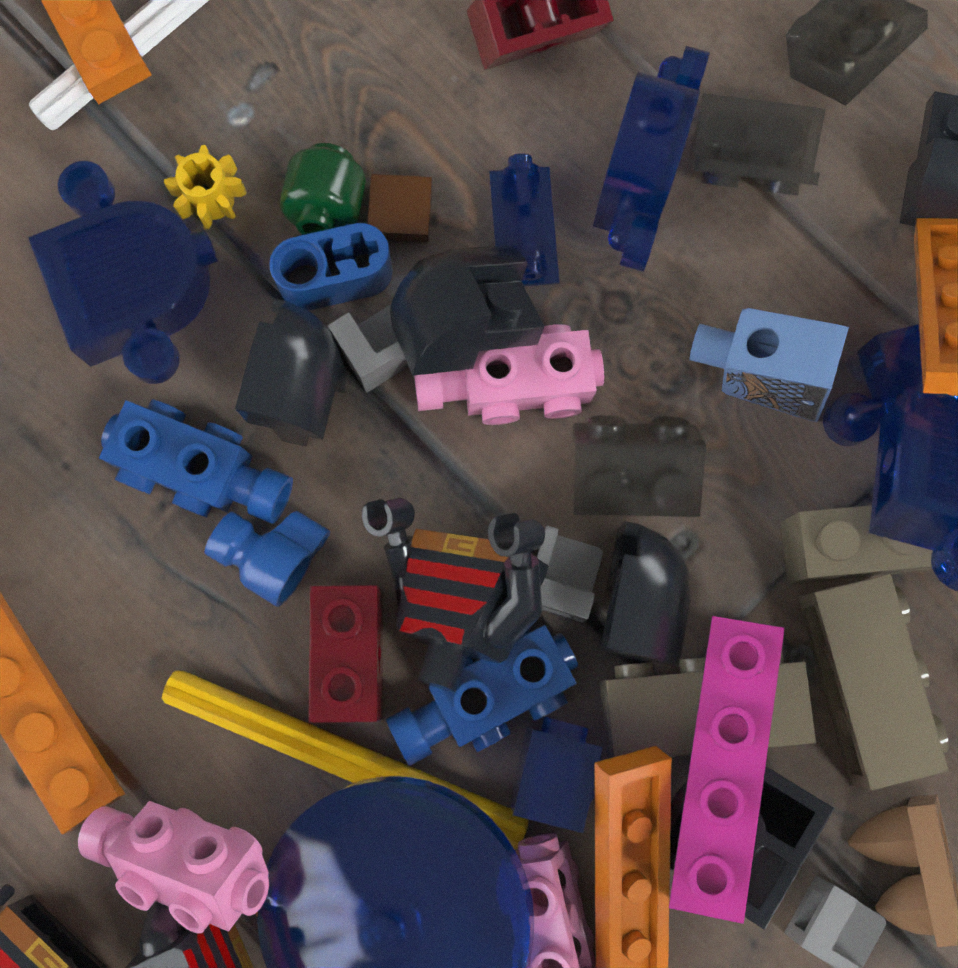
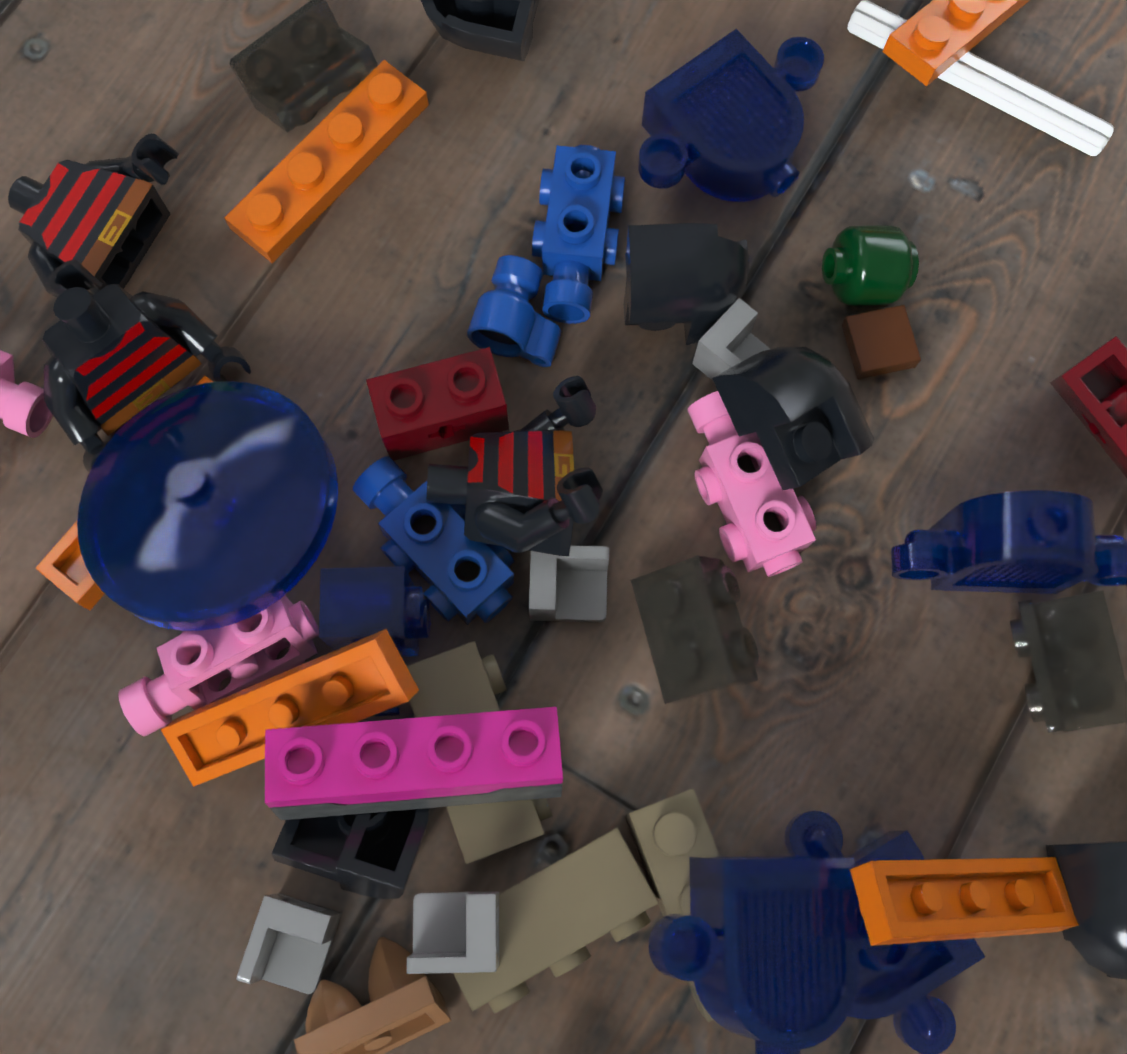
camera: 75 degrees right, 5 degrees down
(179, 862) = (218, 309): bright pink brick -> none
(199, 170) = (838, 164): yellow gear -> none
(310, 742) = (350, 412): yellow axle -> none
(339, 244) = (805, 306): blue beam -> none
(526, 217) = (908, 459): clear blue hinge -> none
(647, 597) = (563, 658): black brick -> none
(775, 360) = (845, 734): medium blue torso -> none
(885, 769) = (455, 933): none -> light grey panel

